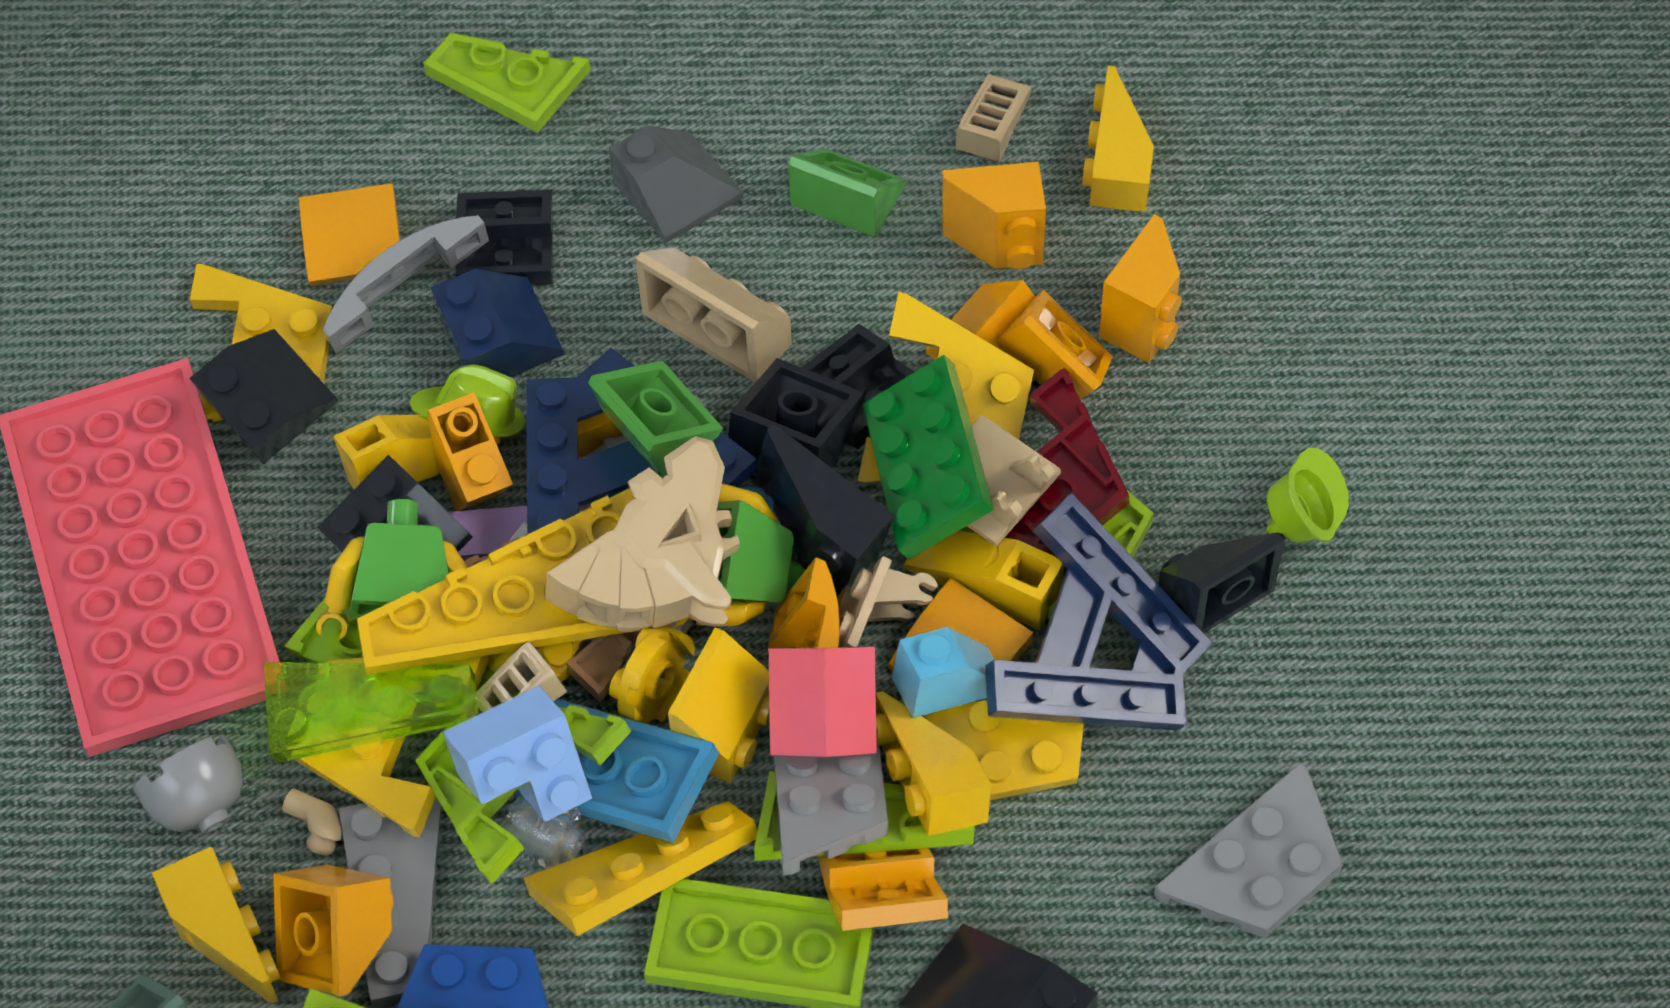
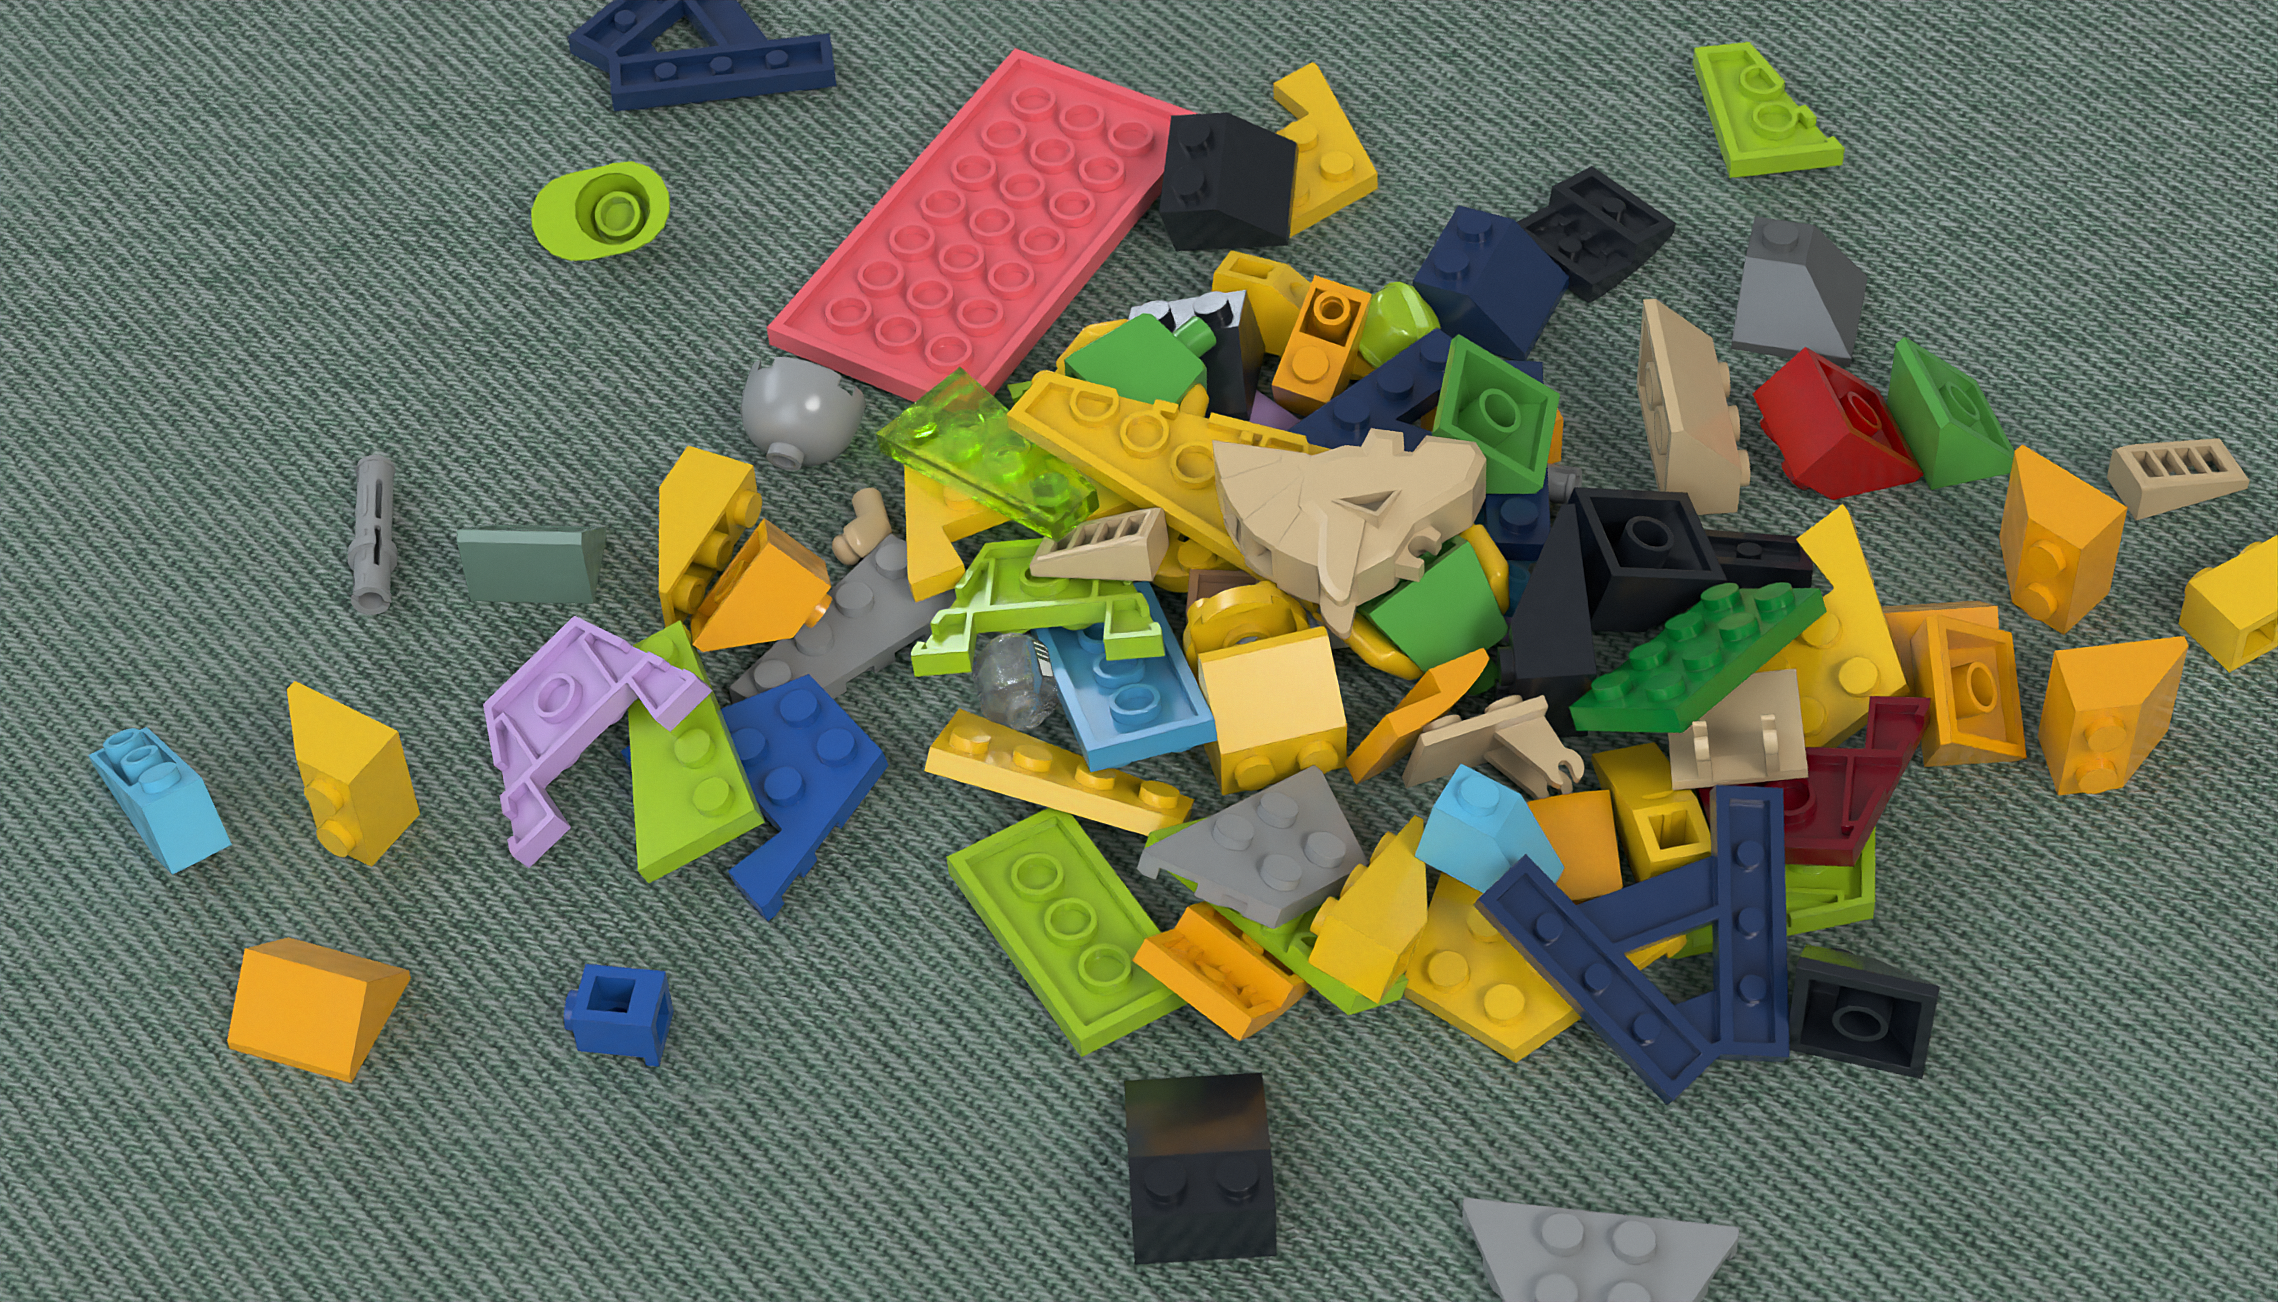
camera: 50 degrees right, 10 degrees down
(347, 231) = (1464, 134): light orange slope -> none
(449, 239) = (1452, 174): light grey slope -> none
(523, 747) = (1049, 571): light blue brick -> none
(794, 248) = (1833, 429): none -> red slope
(822, 701) = (1345, 766): coral slope -> none
(1308, 499) = (2052, 1020): lime piece -> none

